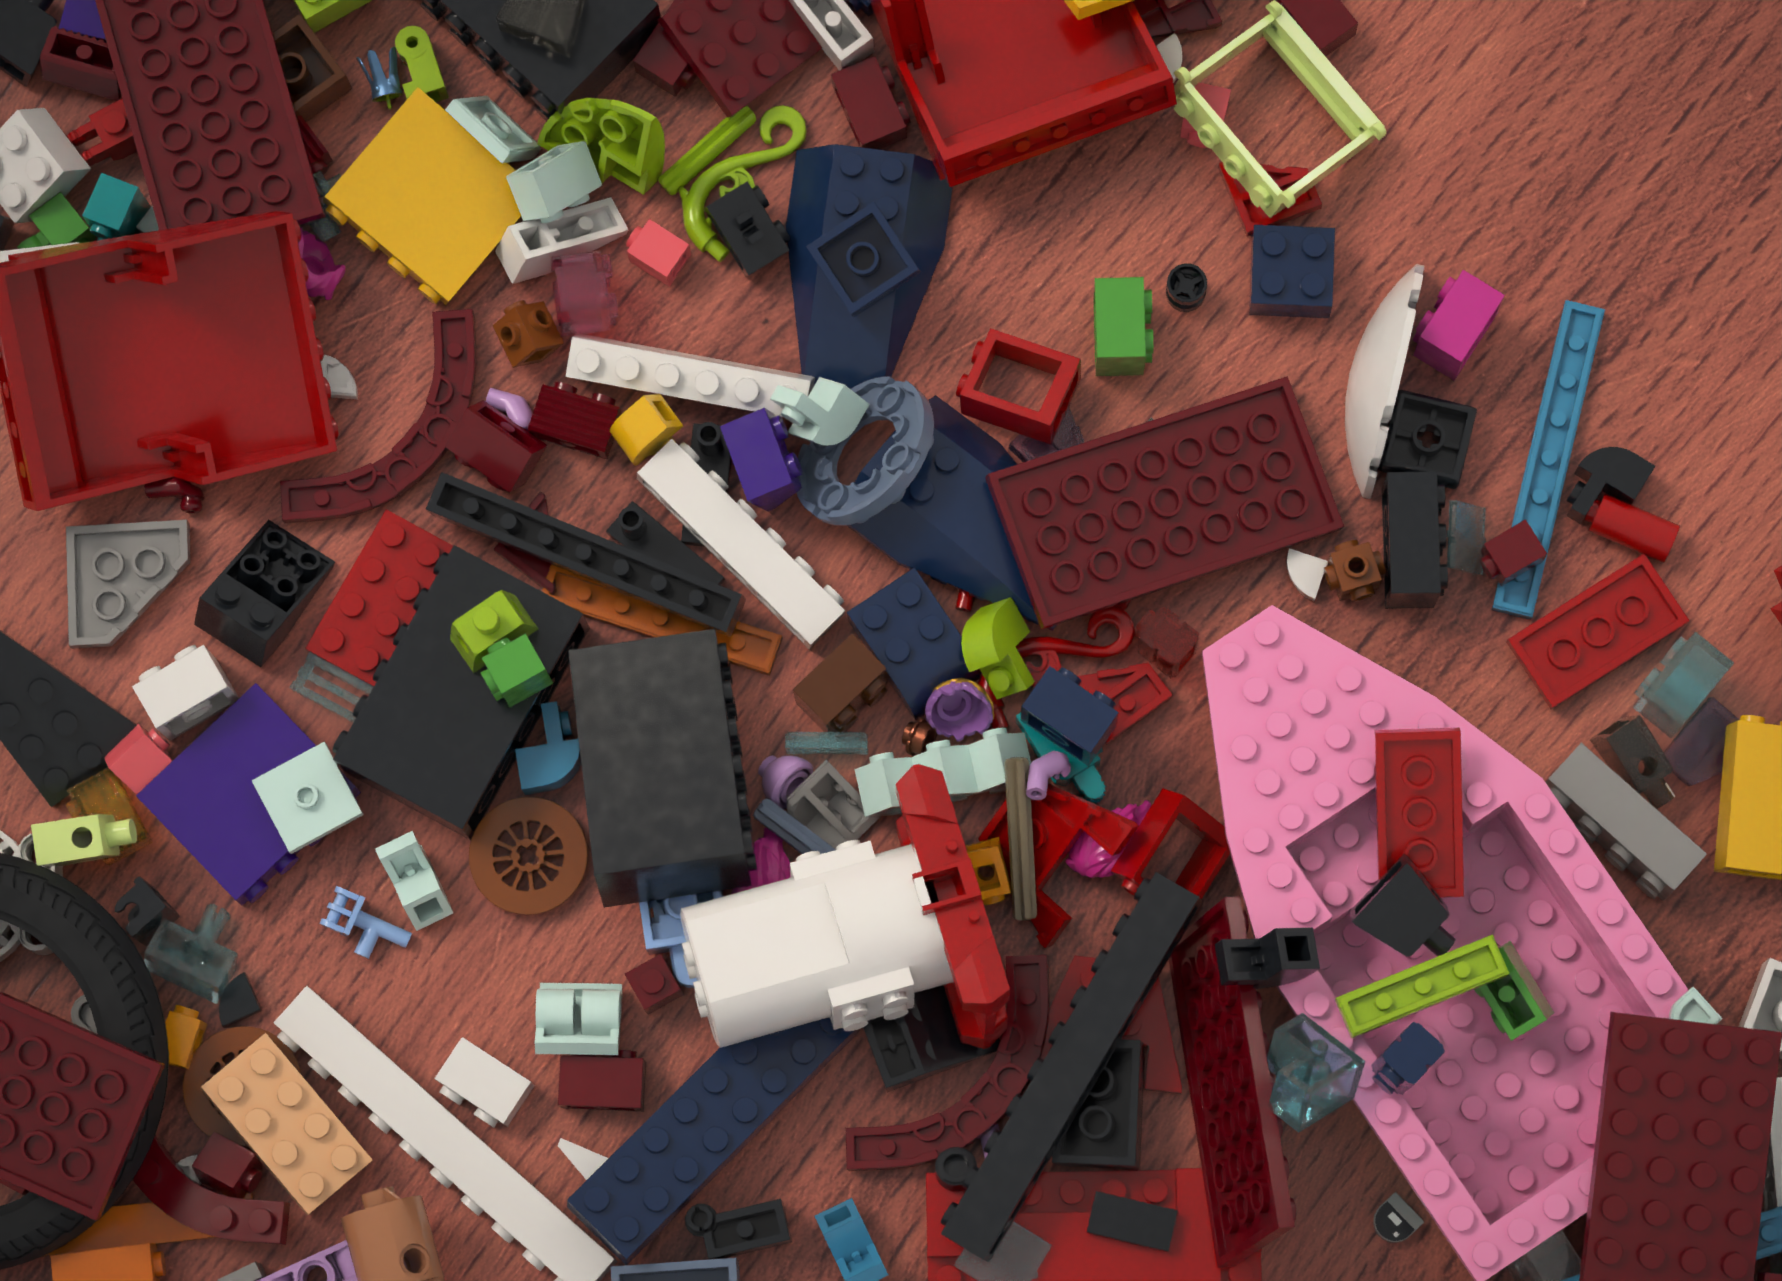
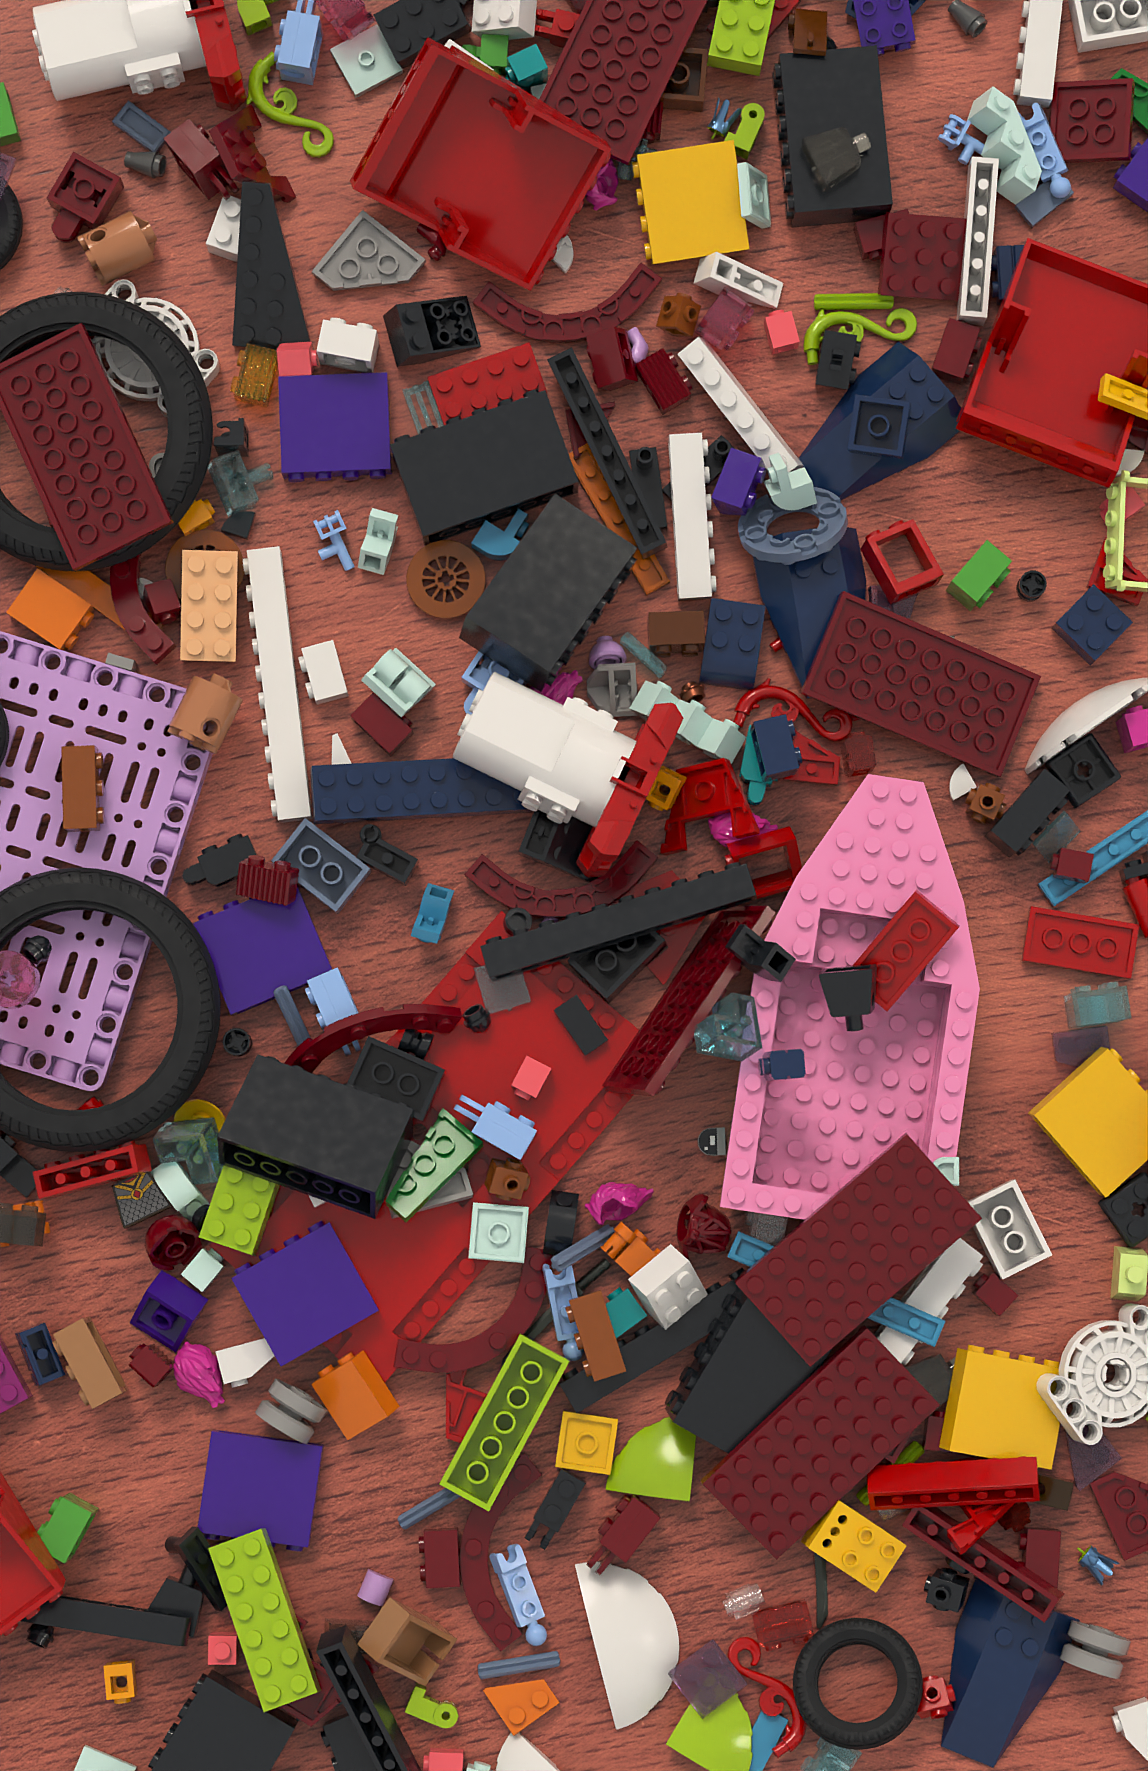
camera: 30 degrees right, 5 degrees up
(72, 842) = (231, 374): yellowish green torso -> none
(307, 797) = (361, 452): light aqua plate -> none
(488, 623) = (525, 448): lime torso -> none
(514, 670) = (517, 479): bright green brick -> none
(554, 182) = (760, 249): light aqua brick -> none
(618, 136) = (805, 252): lime brick -> none
(645, 427) = (694, 415): yellow brick -> none
(654, 984) = (450, 698): dark red brick -> none
(789, 828) = (586, 681): sand blue axle -> none
(959, 708) = (724, 696): medium lavender hair -> none
(991, 644) = (767, 679): lime brick -> none
(1020, 839) = (696, 787): dark tan axle -> none
(1044, 768) = (739, 763): lavender arm -> none
(1421, 986) = (824, 1036): lime tile -> none
(1515, 999) = (868, 1079): bright green brick -> none
(1624, 746) = (1039, 1011): clear smoke torso -> none
(1624, 824) = (1003, 1047): light grey brick -> none

